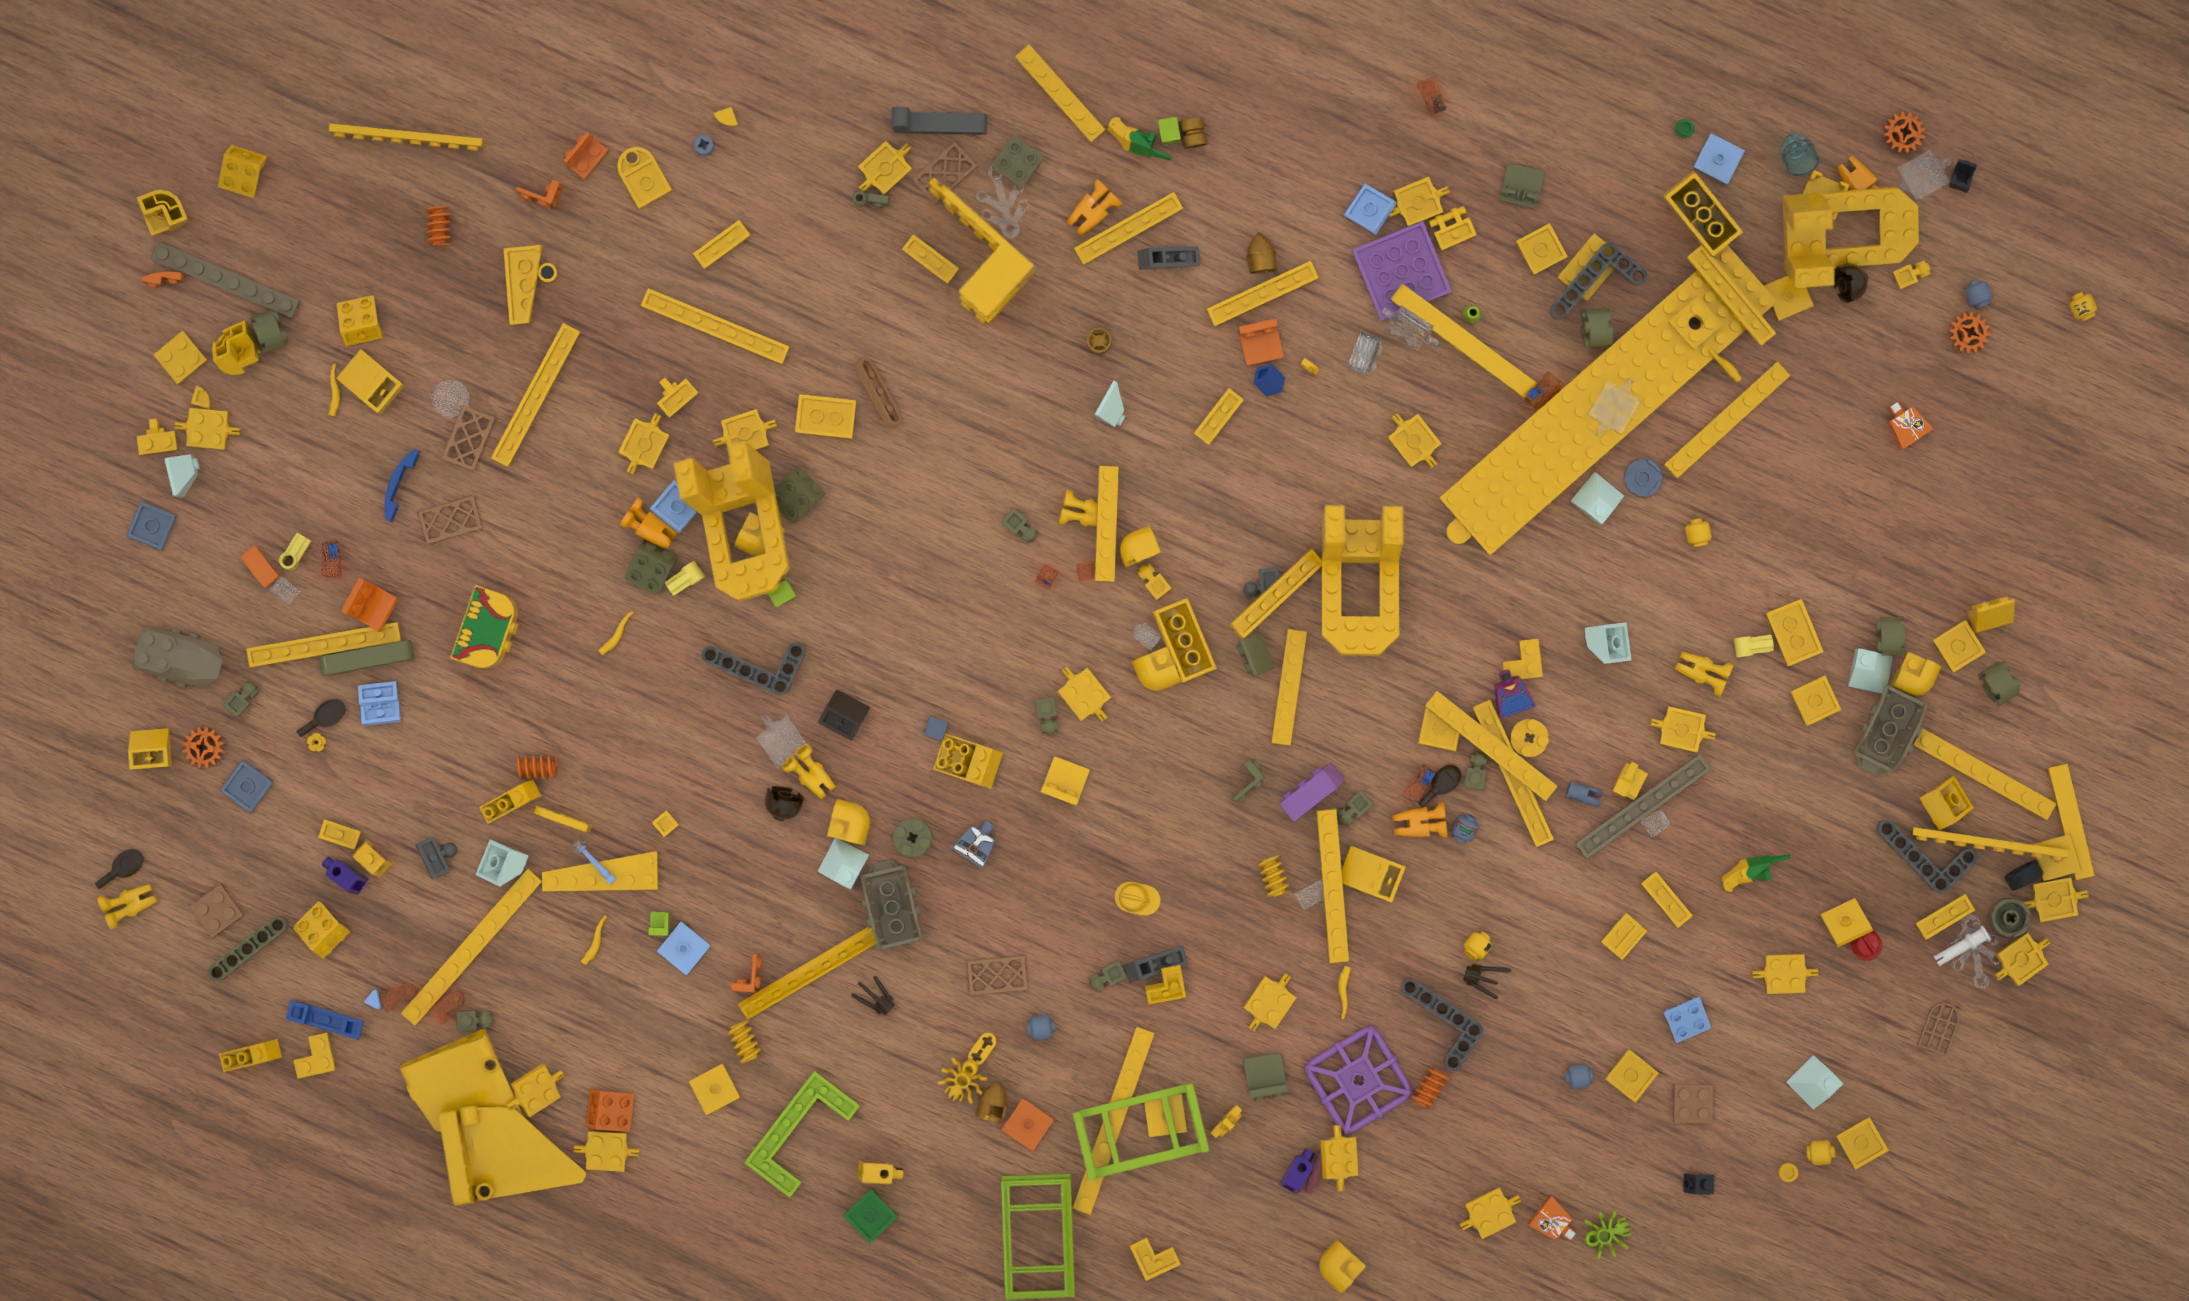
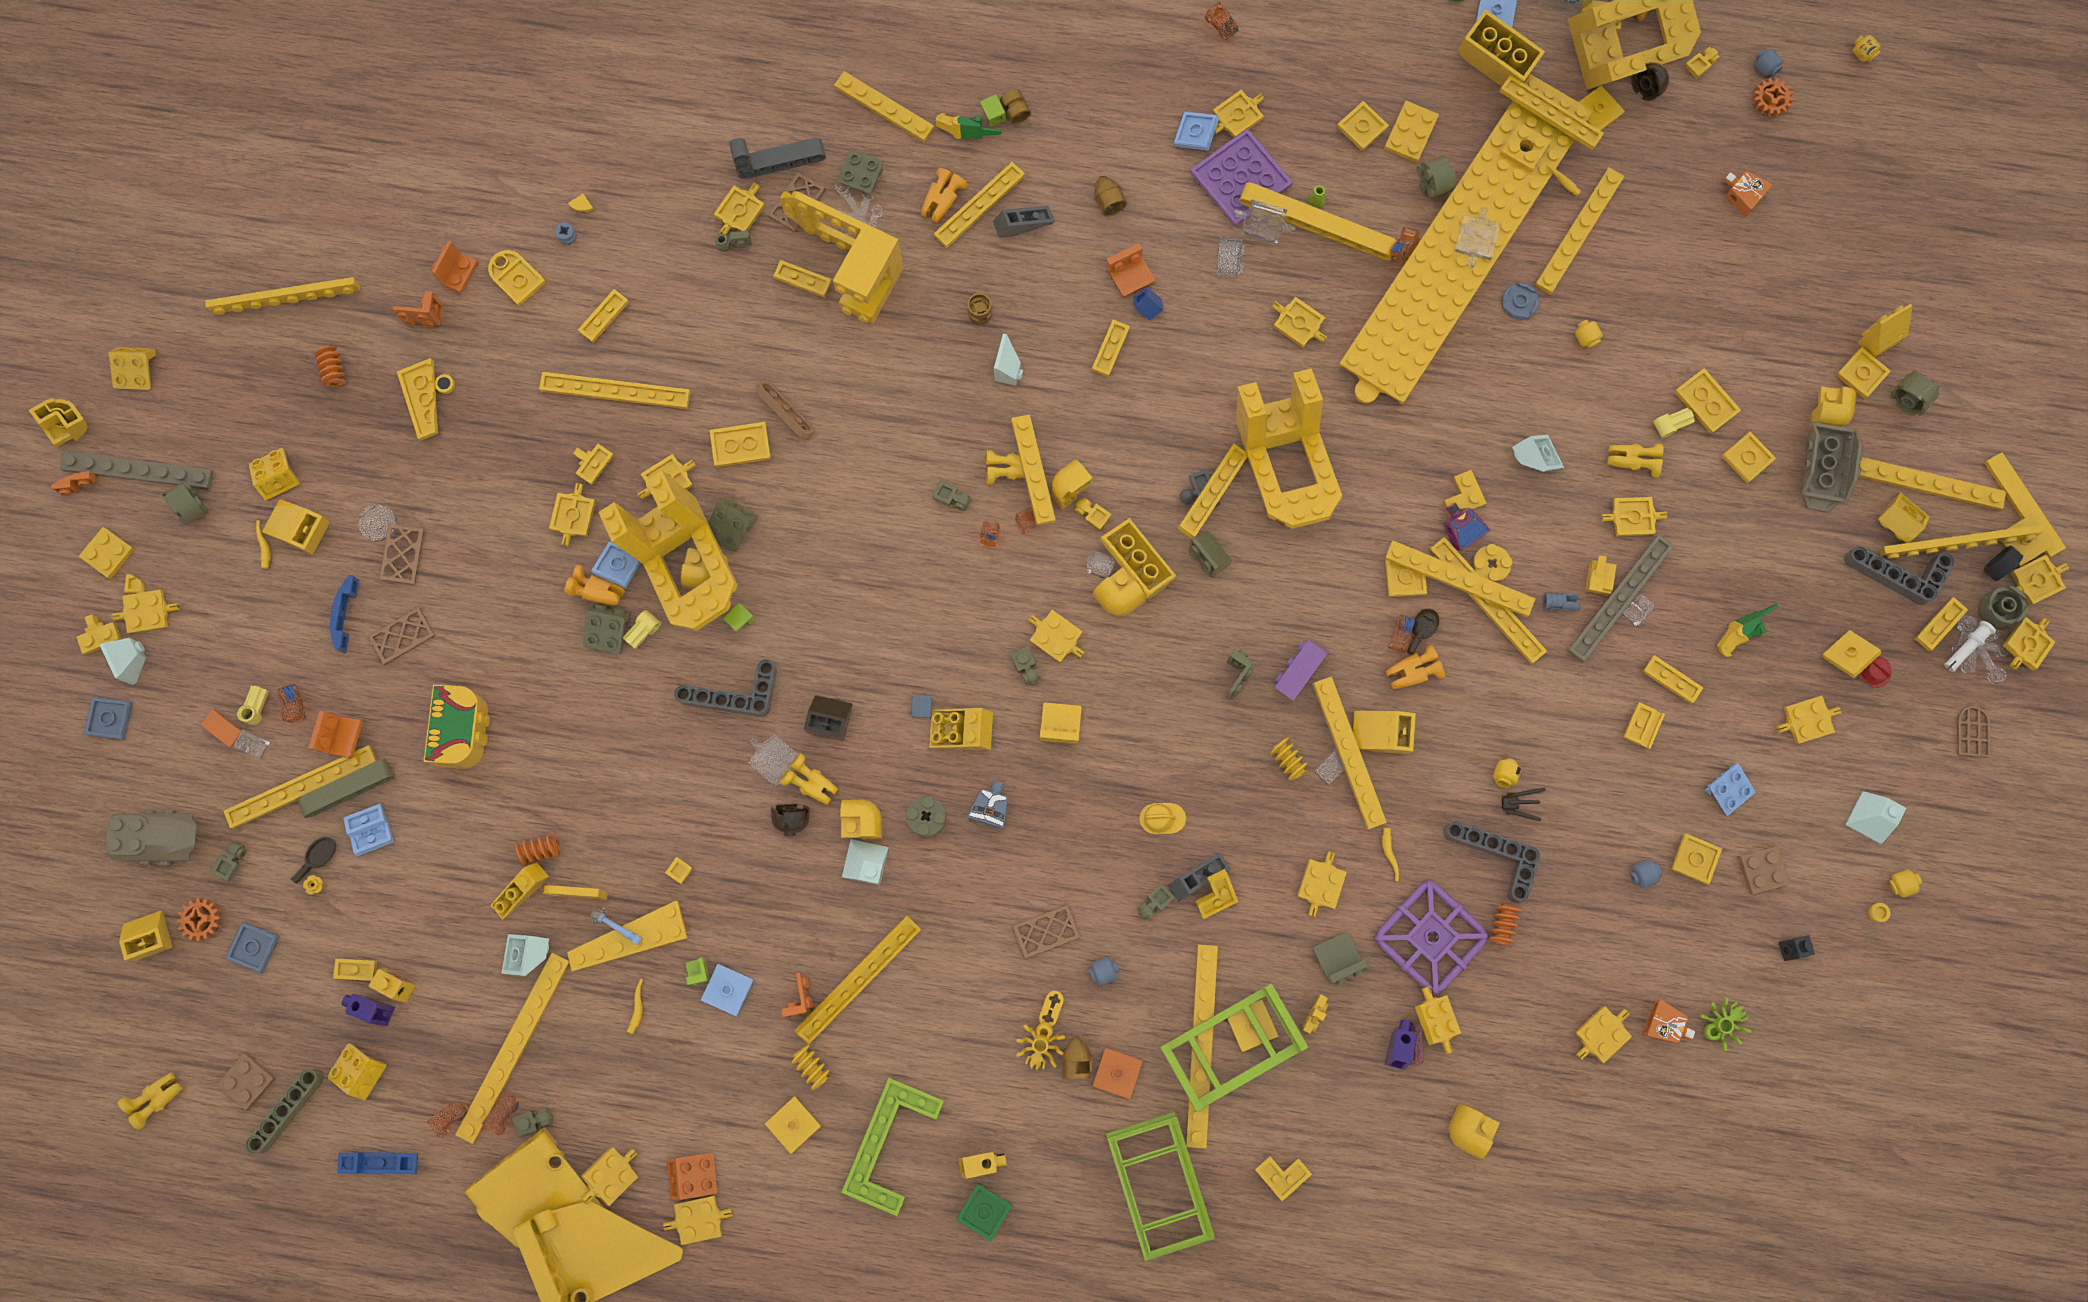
camera: 15 degrees left, 10 degrees down
(123, 866) = (142, 1062): dark brown piece -> none
(236, 349) = (156, 528): yellow brick -> none
(250, 1055) = (309, 1221): yellow slope -> none
(321, 1059) = (384, 1205): yellow plate -> none
(374, 999) = (424, 1128): light blue slope -> none
(434, 857) = (455, 967): dark grey plate -> none
(535, 395) = (457, 497): yellow plate -> none
(613, 641) = (586, 708): yellow animal -> none
(883, 1004) = (940, 990): dark brown plant -> none
(891, 905) = (923, 890): dark tan slope -> none
(1262, 293) = (1119, 229): yellow plate -> none
(1289, 687) = (1250, 578): yellow plate -> none
(1309, 366) = (1181, 282): yellow tile -> none
(1358, 804) = (1350, 670): olive plate -> none
(1453, 234) = (1279, 133): yellow plate -> none
(1465, 828) = (1459, 663): sand blue head -> none
(1474, 776) = (1452, 613): olive plate -> none
(1522, 185) = (1327, 78): olive hinge -> none
(1592, 276) = (1415, 132): dark grey beam -> none
(1597, 498) = (1484, 331): light aqua slope -> none
(1862, 1143) = (1940, 863): yellow plate -> none
(1870, 670) = (1788, 416): light aqua slope -> none
(1892, 636) = (1800, 377): olive brick -> none

